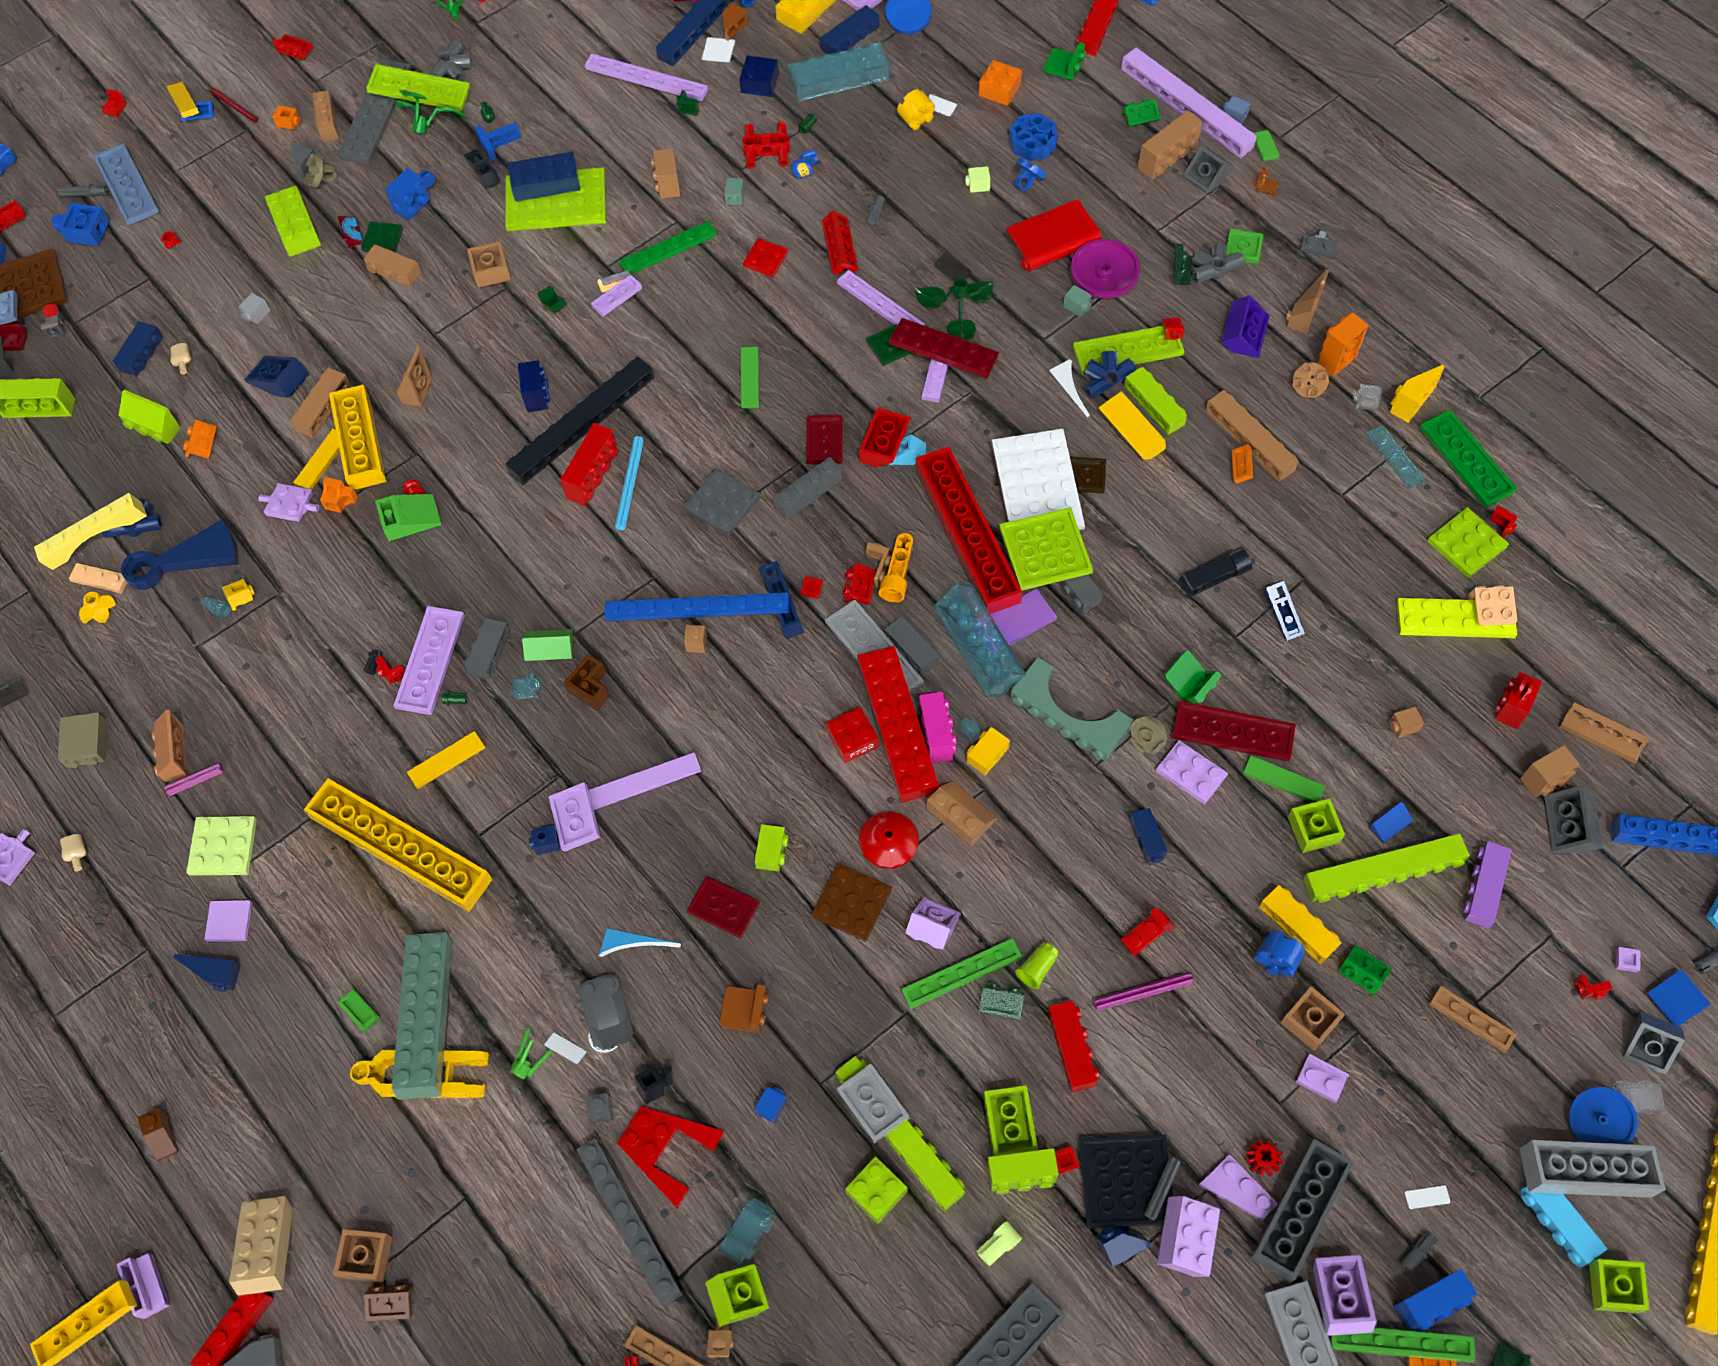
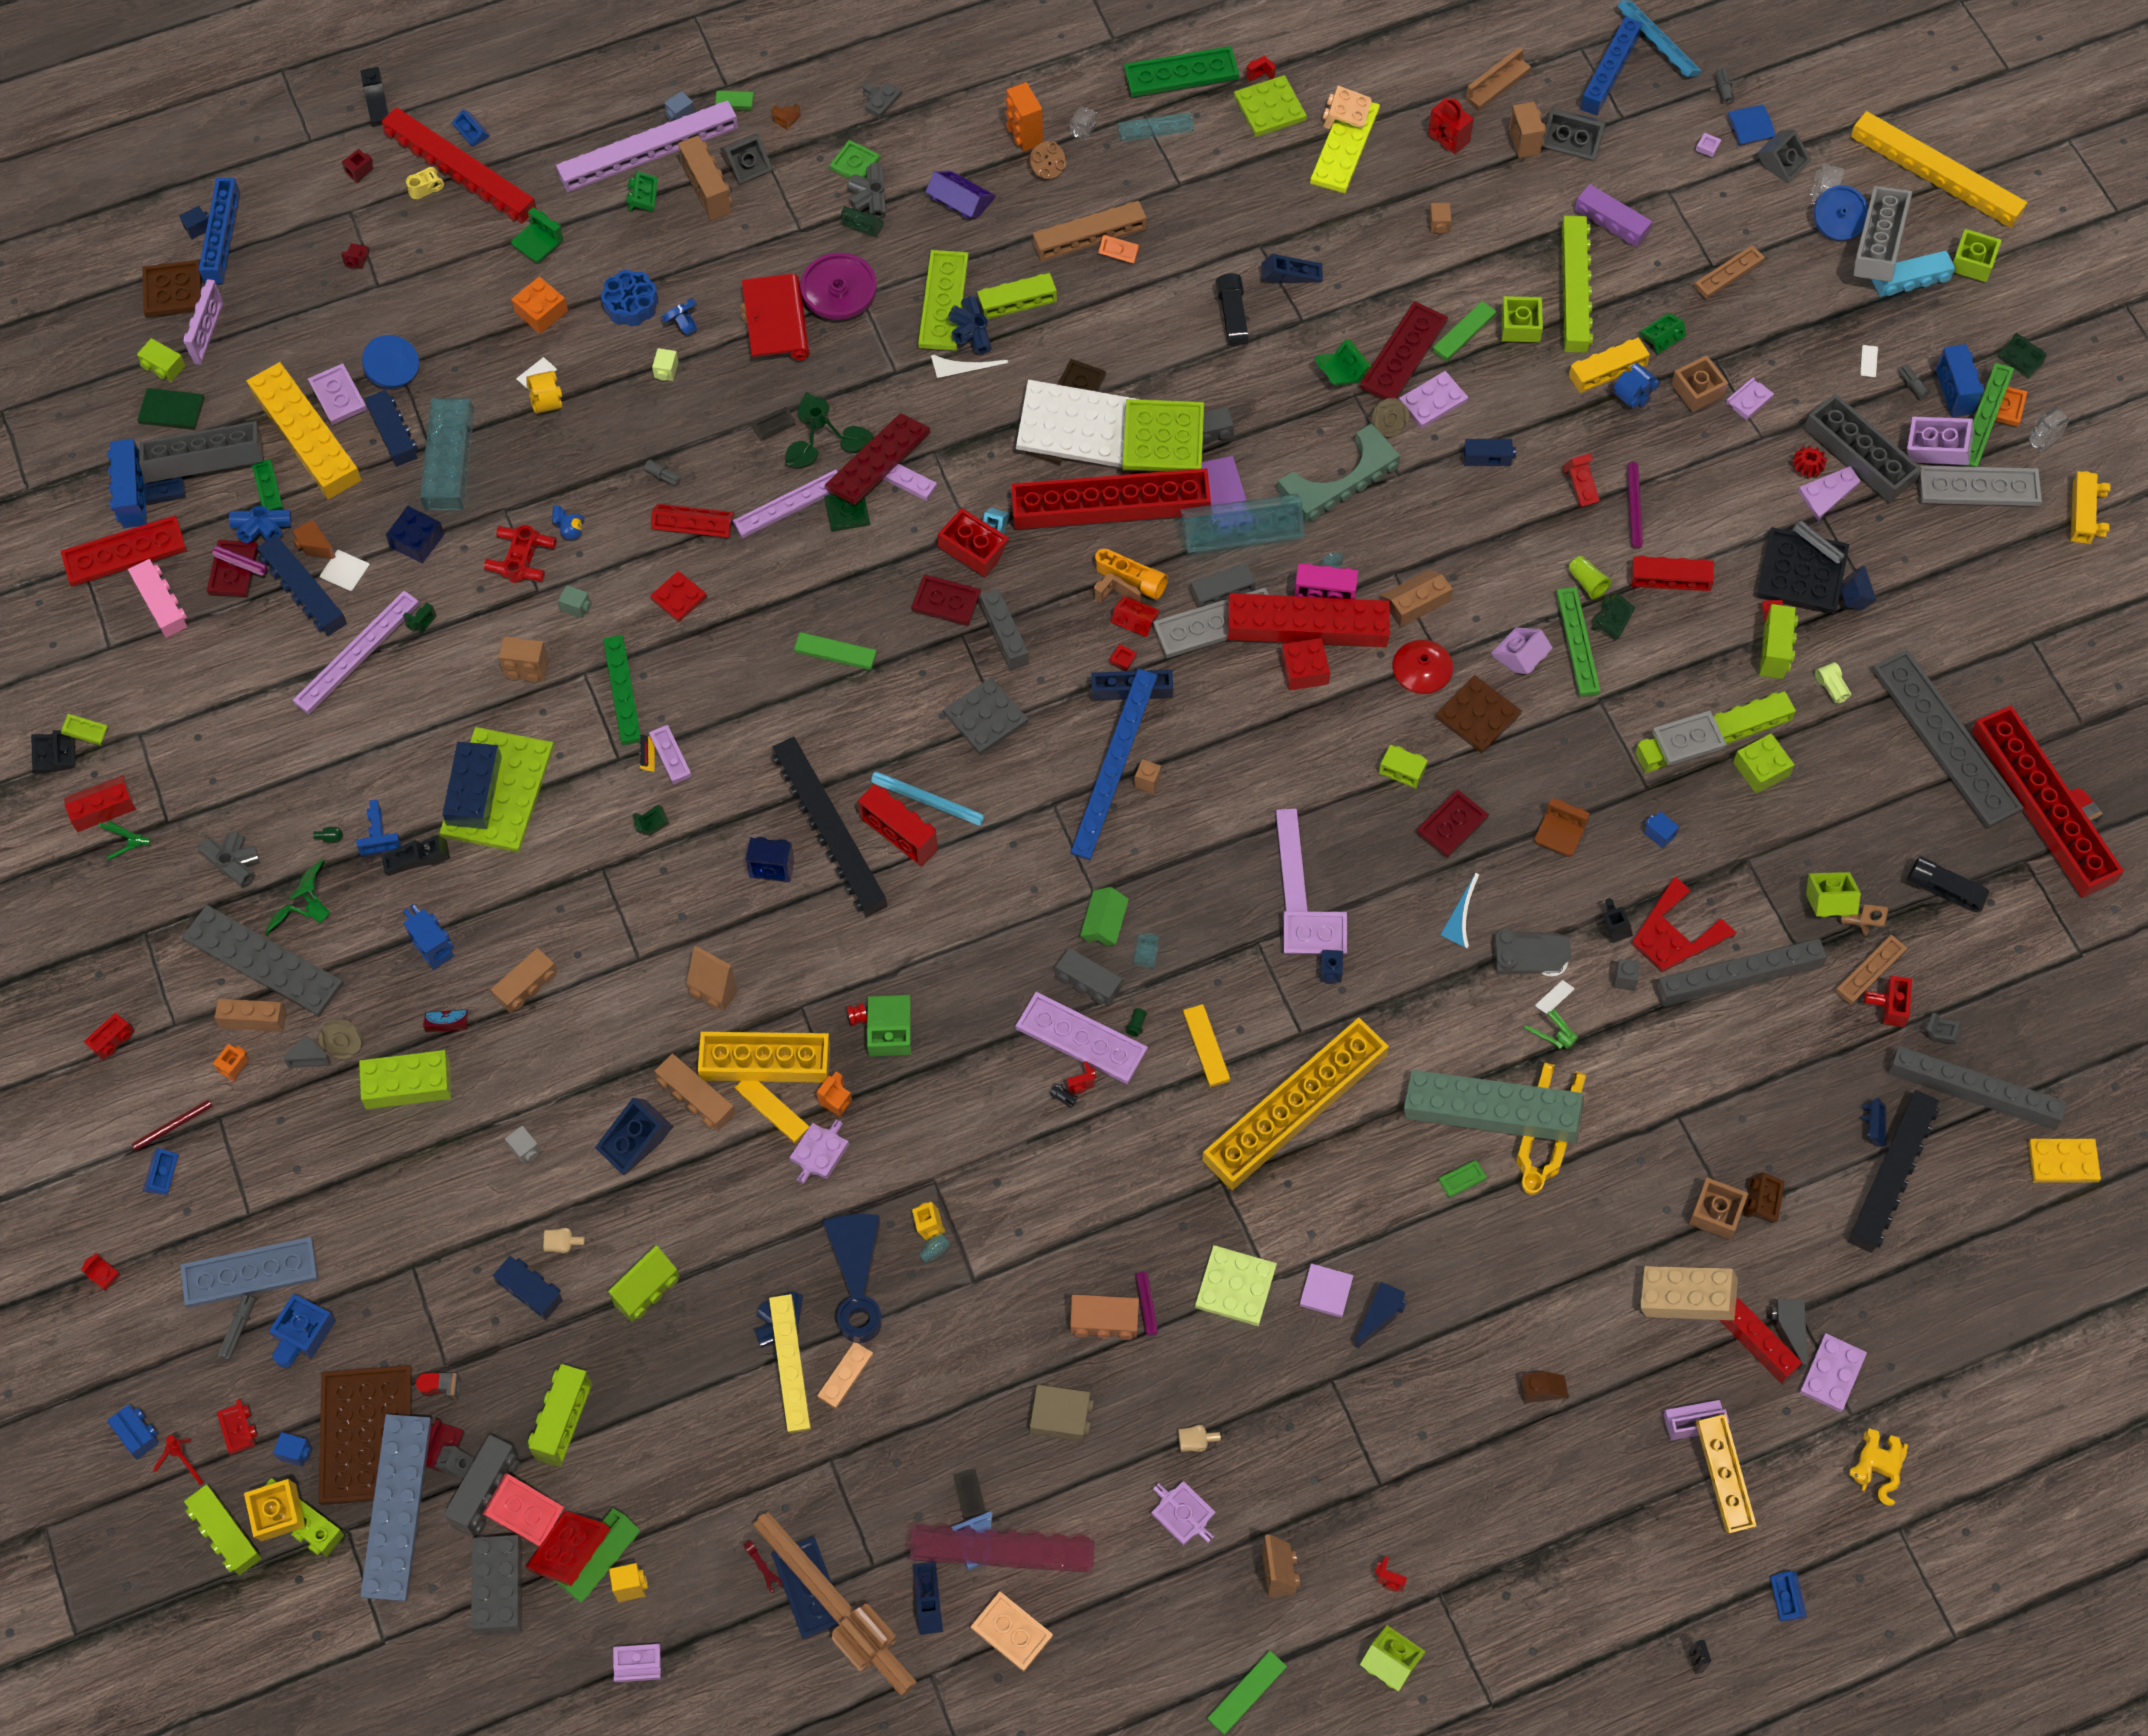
camera: 75 degrees left, 0 degrees up
(98, 609) = (889, 1381): yellow plate -> none
(169, 239) = (366, 1225): red plate -> none
(182, 99) = (142, 1179): yellow tile -> none
(200, 439) = (692, 1236): orange bracket -> none
(383, 235) = (471, 987): dark green tile -> none
(438, 90) = (258, 899): lime plate -> none
(488, 264) = (572, 873): medium nougat brick -> none
(585, 684) = (1165, 889): reddish brown brick -> none
(747, 1231) = (1774, 877): clear light blue brick -> none
(804, 126) = (509, 510): dark green pin -> none
(987, 751) = (1360, 554): yellow brick -> none
(1010, 1121) = (1731, 640): lime brick -> none
(1077, 301) = (866, 324): sand green brick -> none
(1133, 426) = (1040, 323): yellow brick -> none
(1173, 328) = (940, 252): red bracket -> none
(1188, 1236) = (1865, 535): lavender brick -> none
(1305, 307) = (959, 131): medium nougat wedge -> none
(1391, 823) = (1532, 265): blue slope -> none
(1414, 393) = (1102, 82): yellow slope -> none
(1587, 991) = (1726, 183): red bracket -> none

